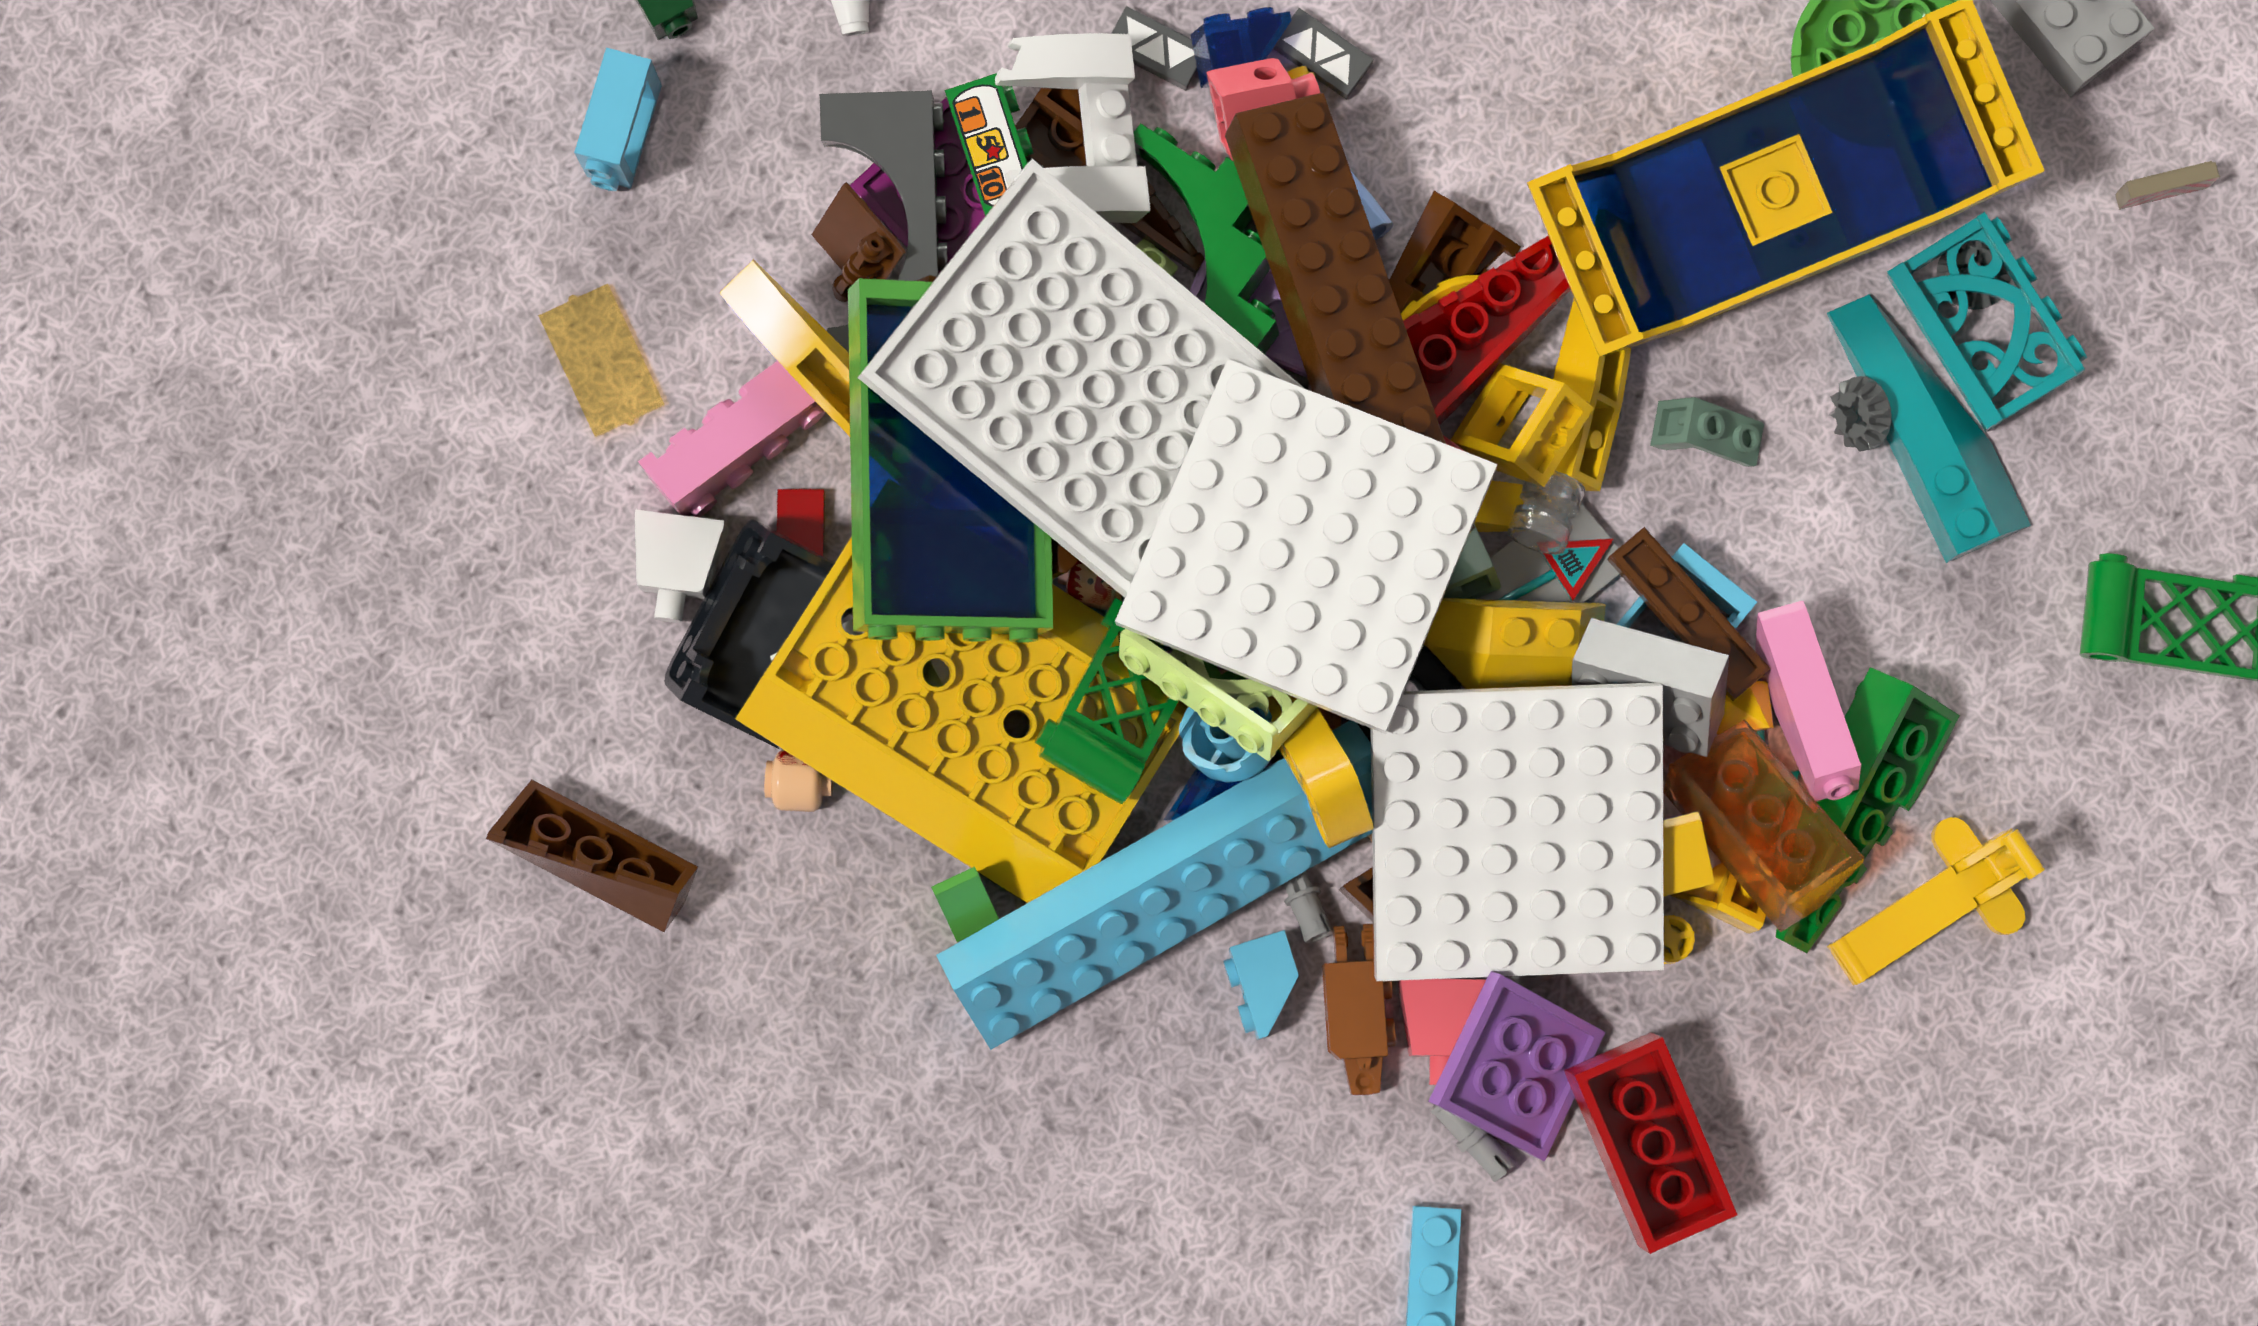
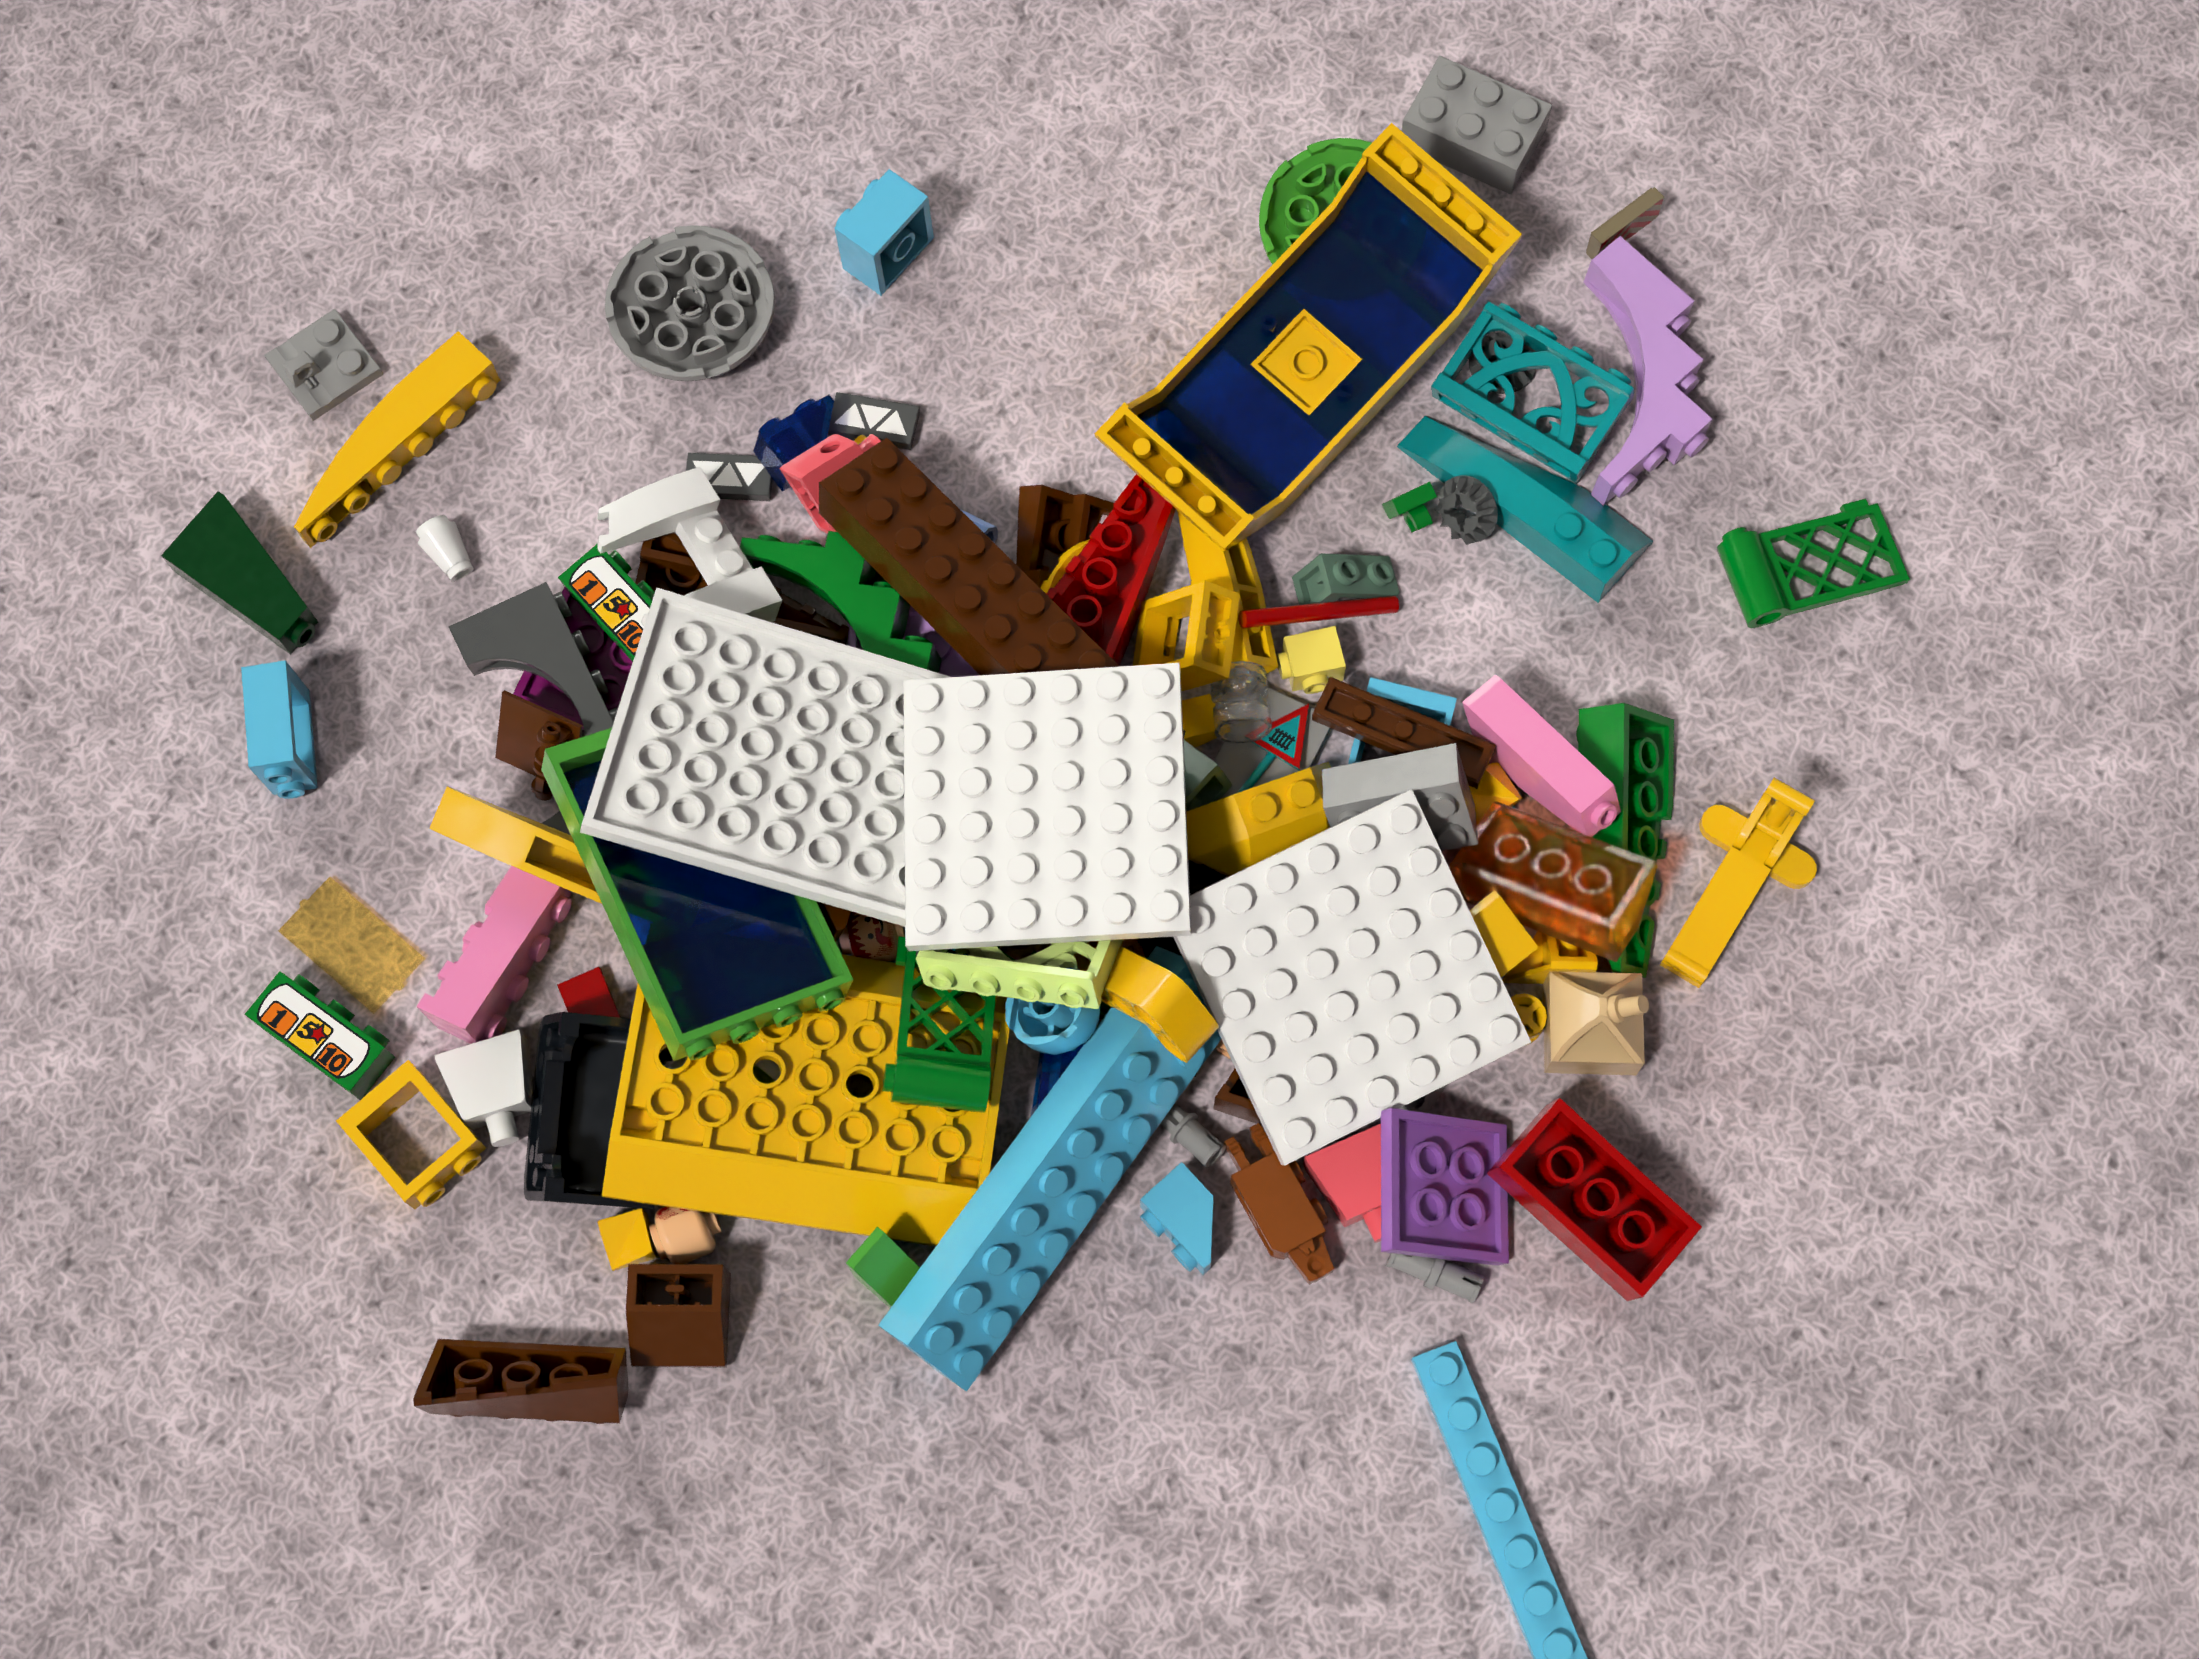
camera: 20 degrees left, 10 degrees down
(539, 437) = (321, 1033): none -> brick
(568, 531) = (381, 1104): none -> yellow window
(742, 763) = (627, 1239): none -> yellow slope
(758, 858) = (678, 1315): none -> reddish brown slope
(1636, 497) = (1311, 659): none -> light yellow brick
(1665, 453) = (1318, 611): none -> red bar
(1734, 975) = (1594, 1023): none -> tan piece
(1809, 383) = (1412, 507): none -> green tile
(2144, 294) = (1651, 319): none -> lavender arch

